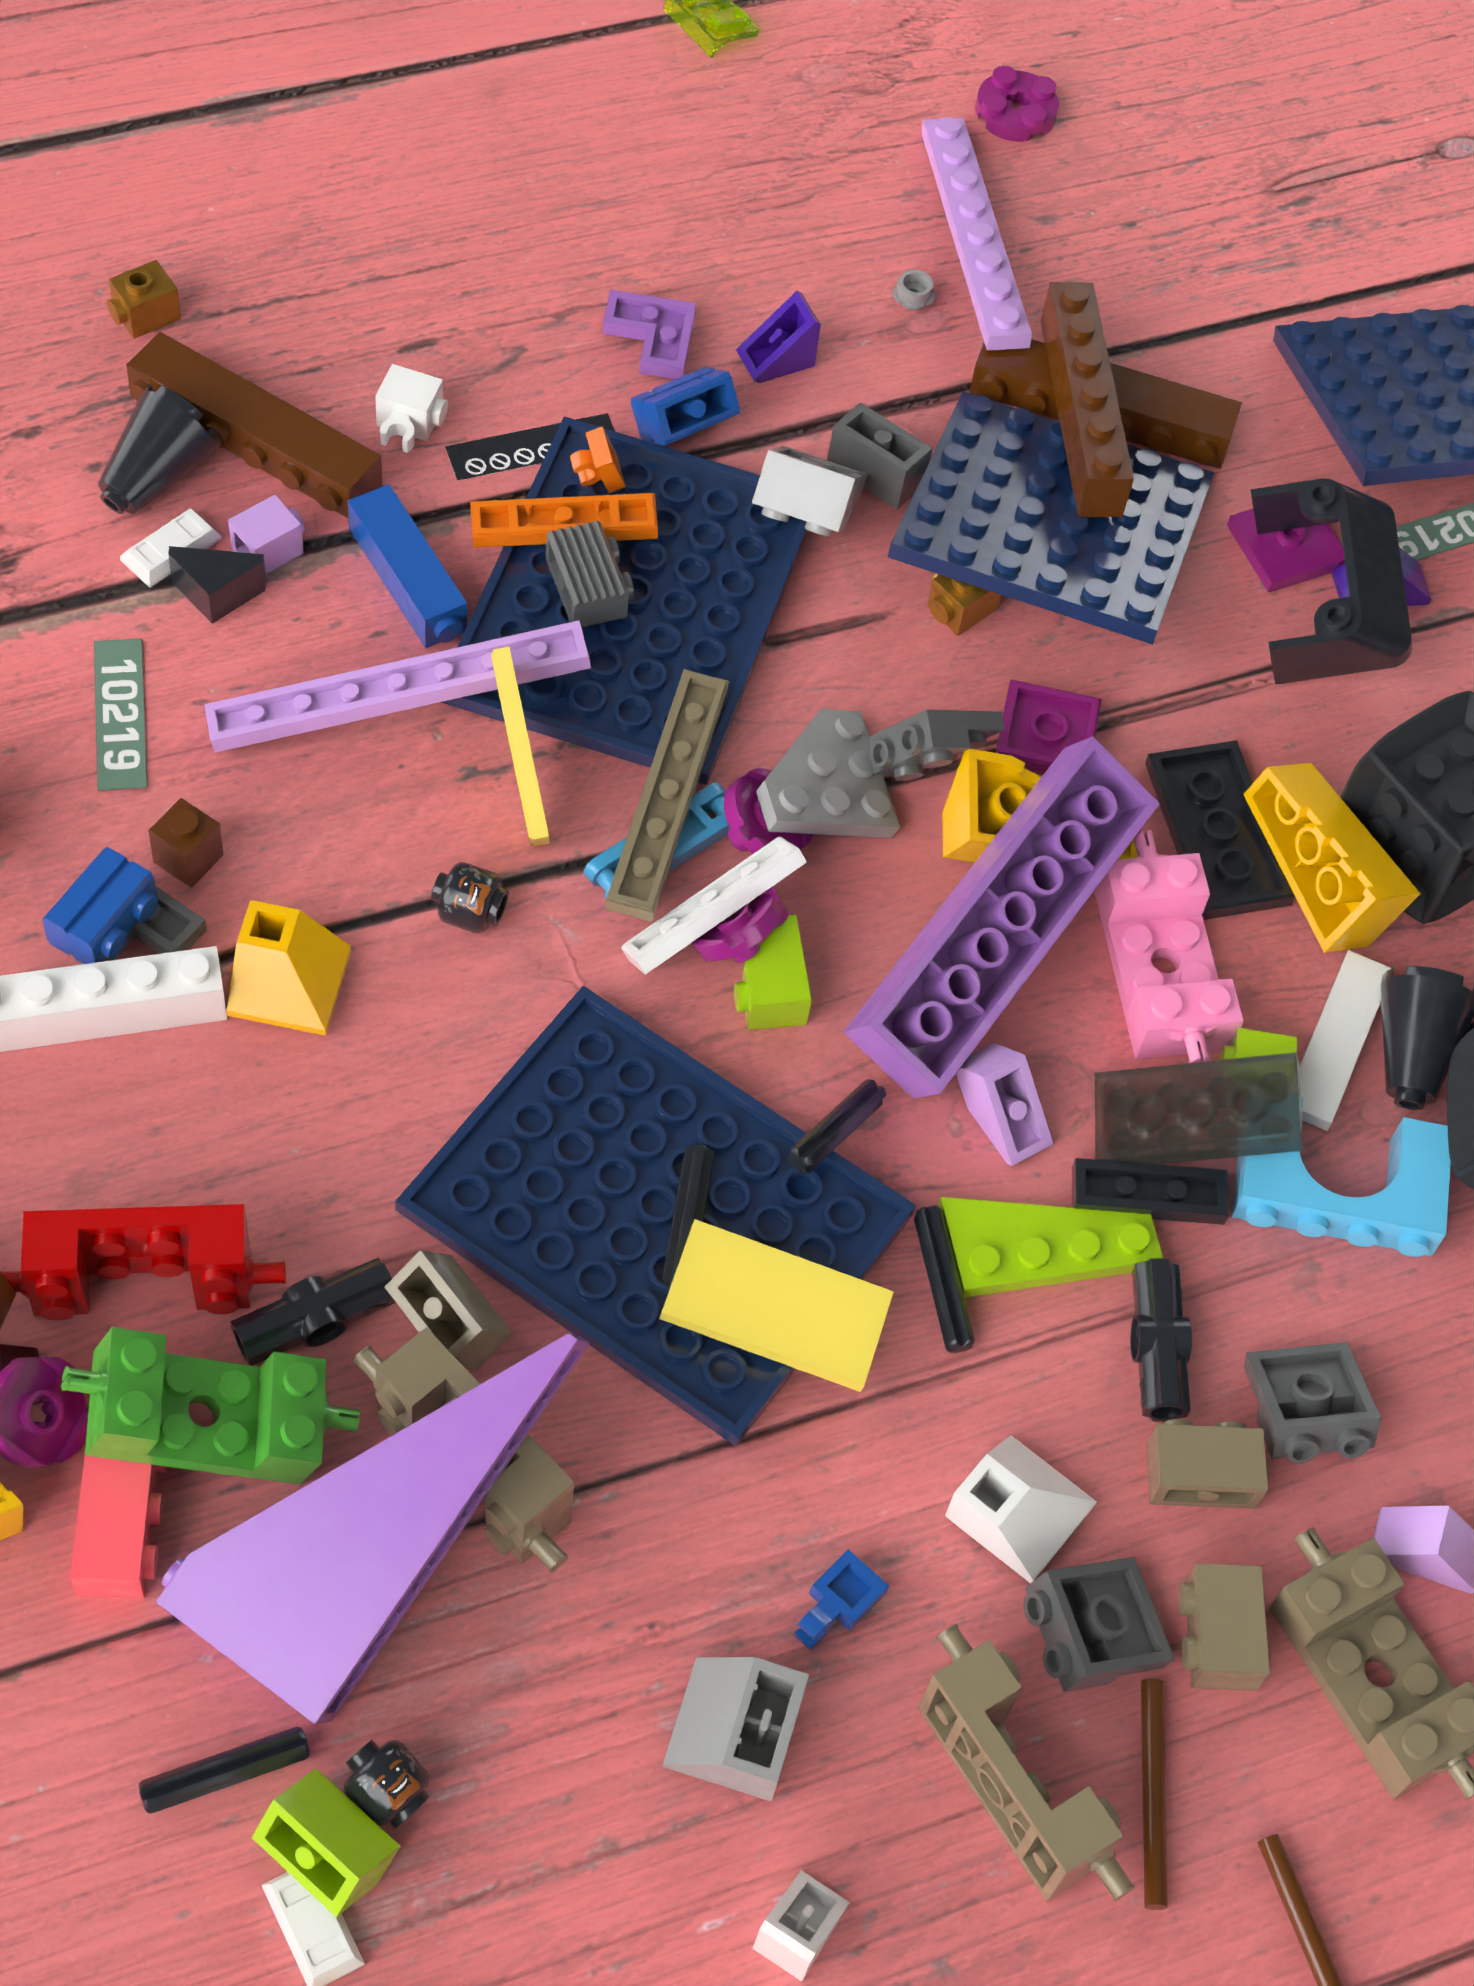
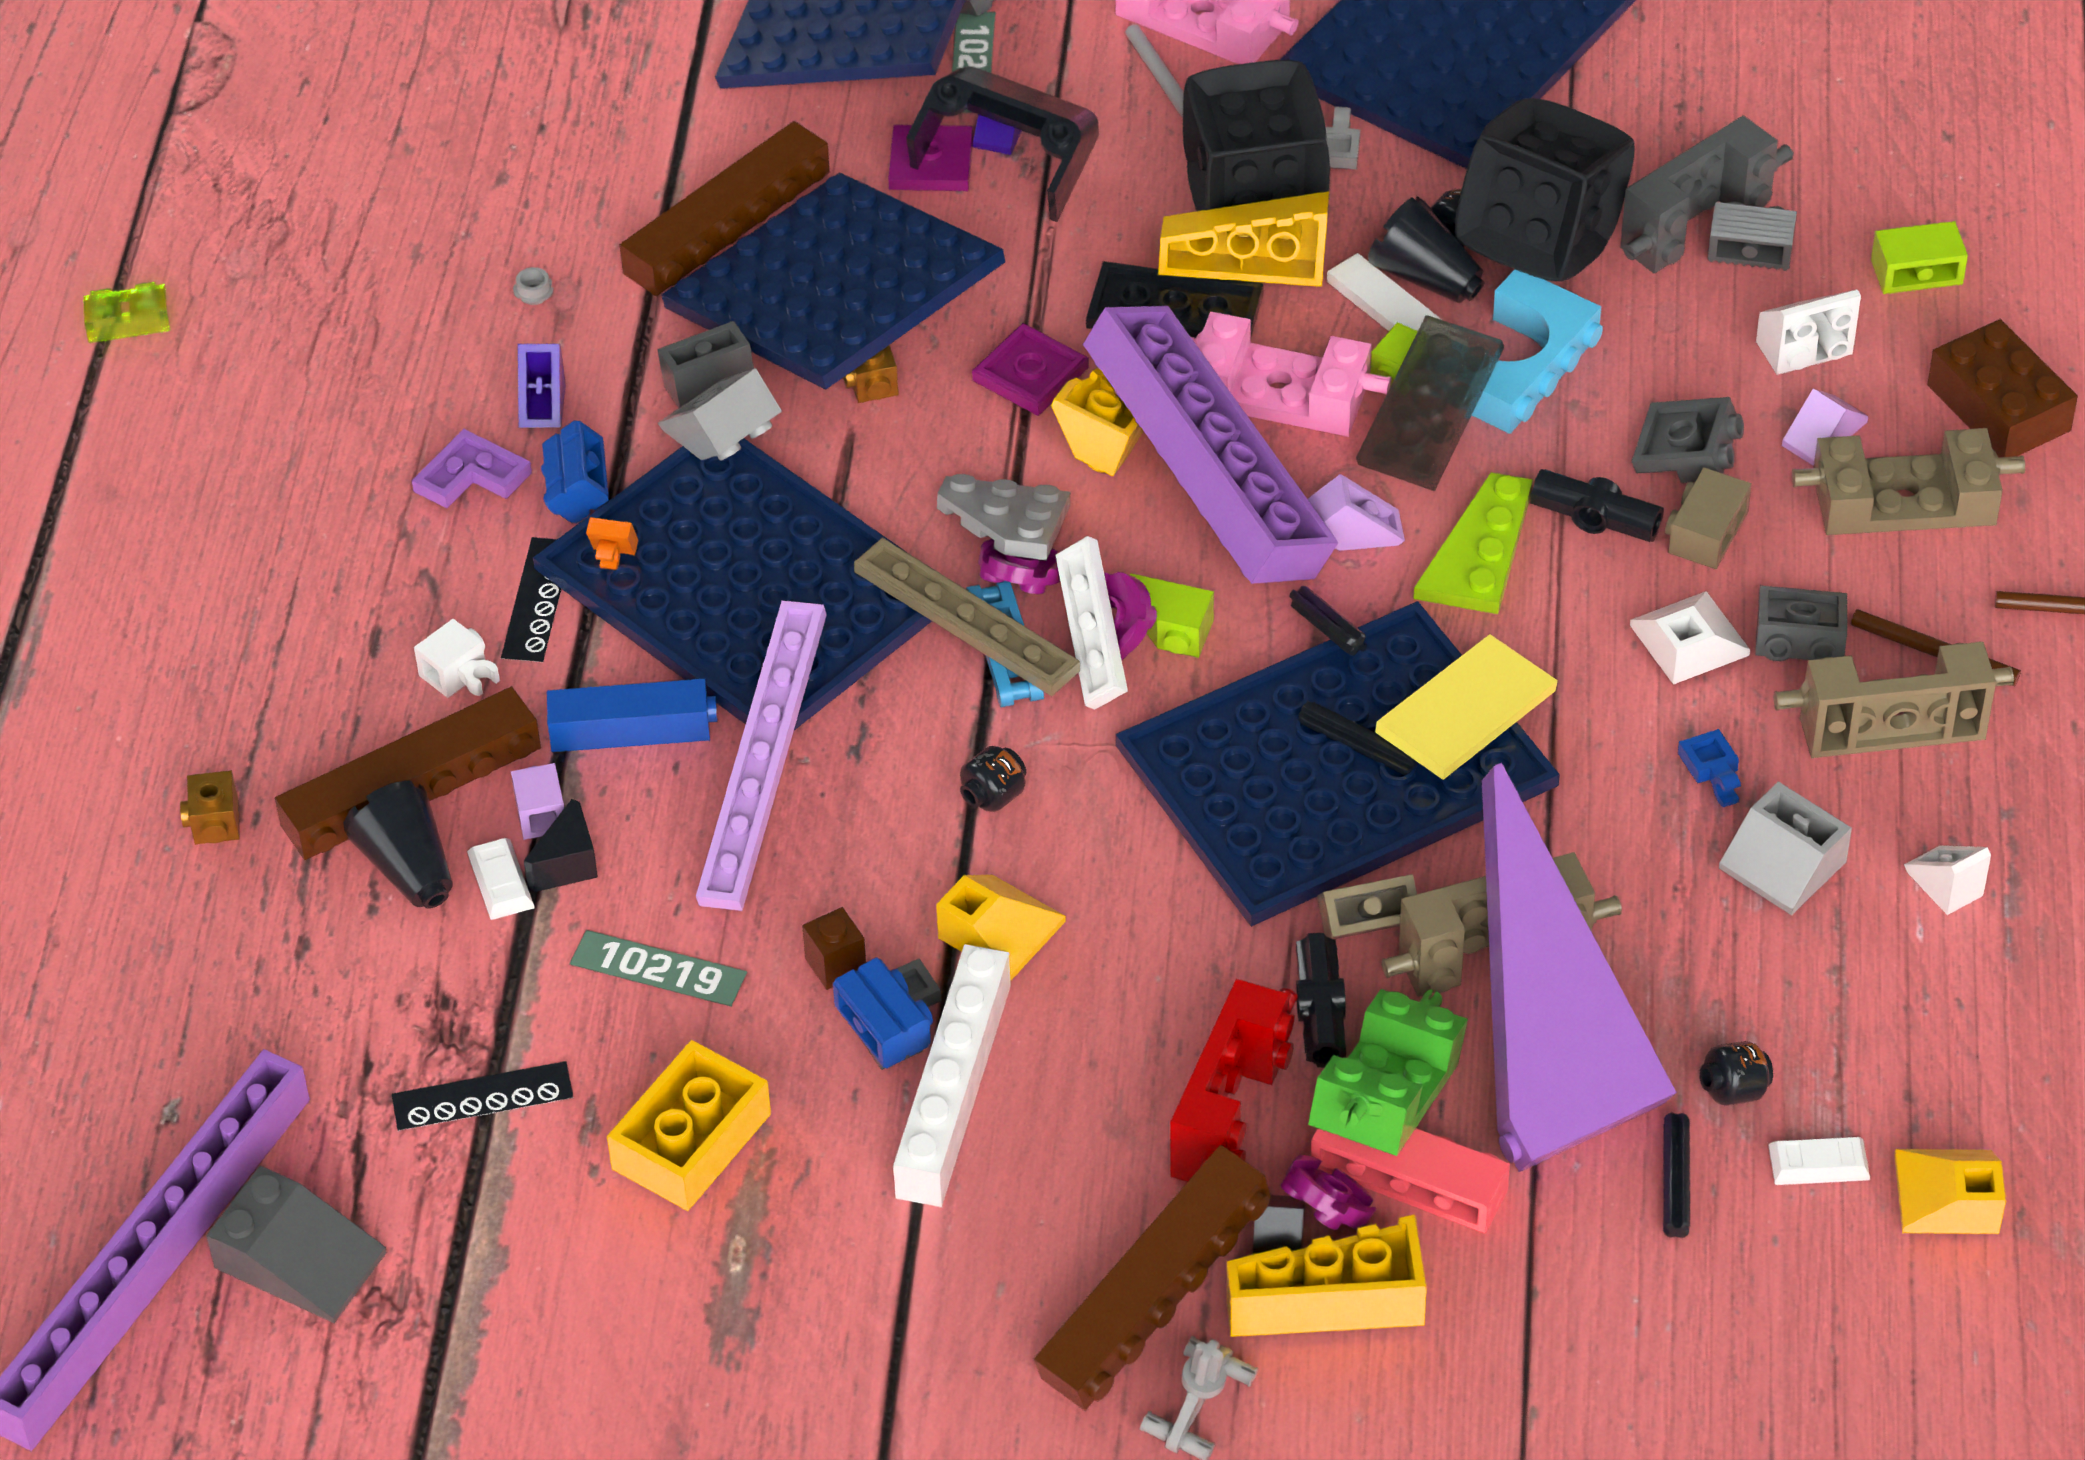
camera: 55 degrees left, 10 degrees down
(325, 1842) = (1769, 1118): lime brick -> none
(520, 747) = (879, 685): light yellow tile -> none
(529, 520) = (653, 589): orange plate -> none
(588, 574) = (725, 589): dark grey brick -> none
(930, 740) = (1024, 424): dark grey plate -> none
(944, 1279) = (1483, 613): black axle -> none
(976, 235) = (505, 218): lavender plate -> none
(1010, 86) = (367, 128): magenta plate -> none
(1086, 400) = (749, 203): reddish brown brick -> none
(1152, 1189) = (1471, 464): black plate -> none
(1225, 1627) = (1836, 555): dark tan brick -> none

